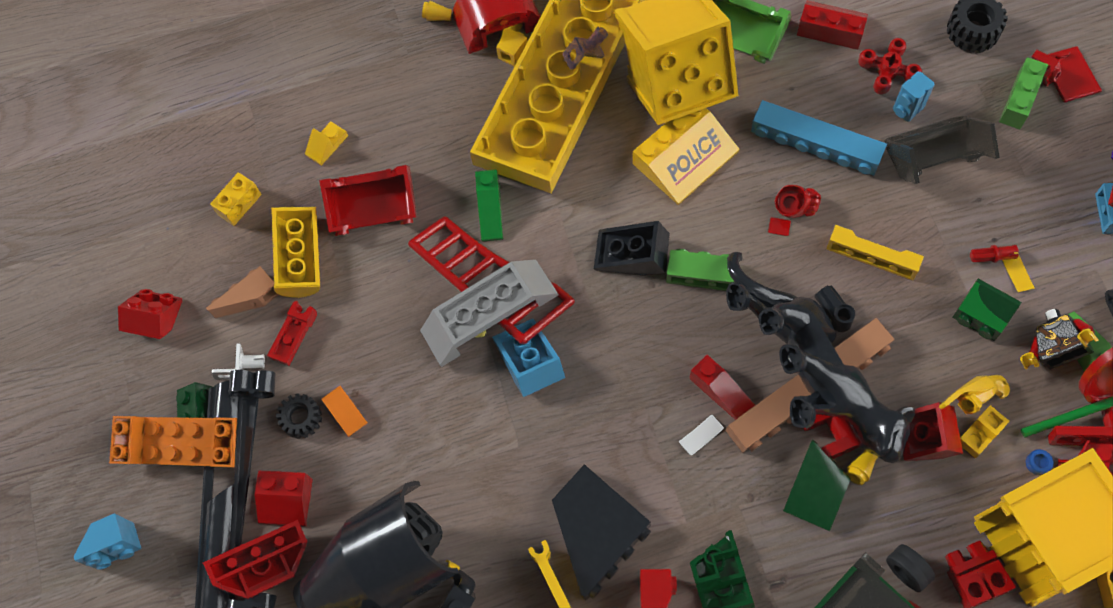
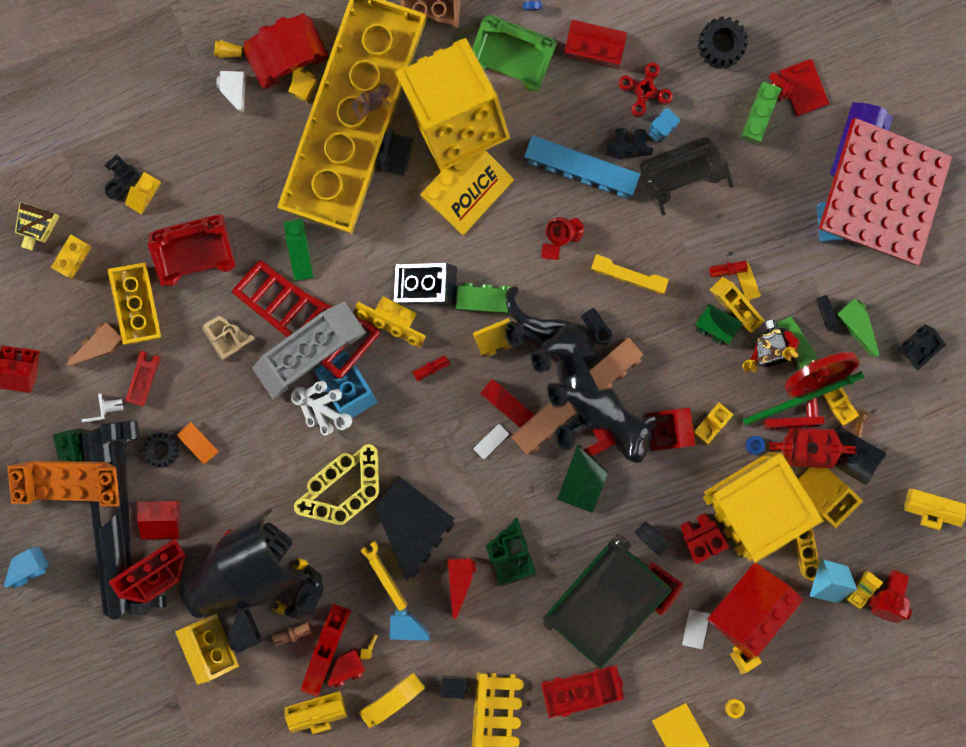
camera: 15 degrees left, 20 degrees up
(203, 165) = (34, 224): none -> torso
(307, 121) = (125, 175): none -> black piece
(395, 295) = (225, 337): none -> tan slope
(438, 45) = (233, 87): none -> white slope
(472, 484) = (326, 483): none -> light yellow piece
(474, 366) = (301, 397): none -> white plant
(589, 286) = (393, 319): none -> yellow bracket
(606, 112) = (396, 153): none -> black bracket
(632, 343) = (431, 368): none -> red axle
(709, 310) = (492, 338): none -> yellow slope
(861, 468) = (616, 462): yellow cone -> none
(868, 121) = (622, 149): none -> black connector
(978, 392) = (708, 395): yellow animal -> none
(1002, 277) = (736, 304): none -> yellow slope

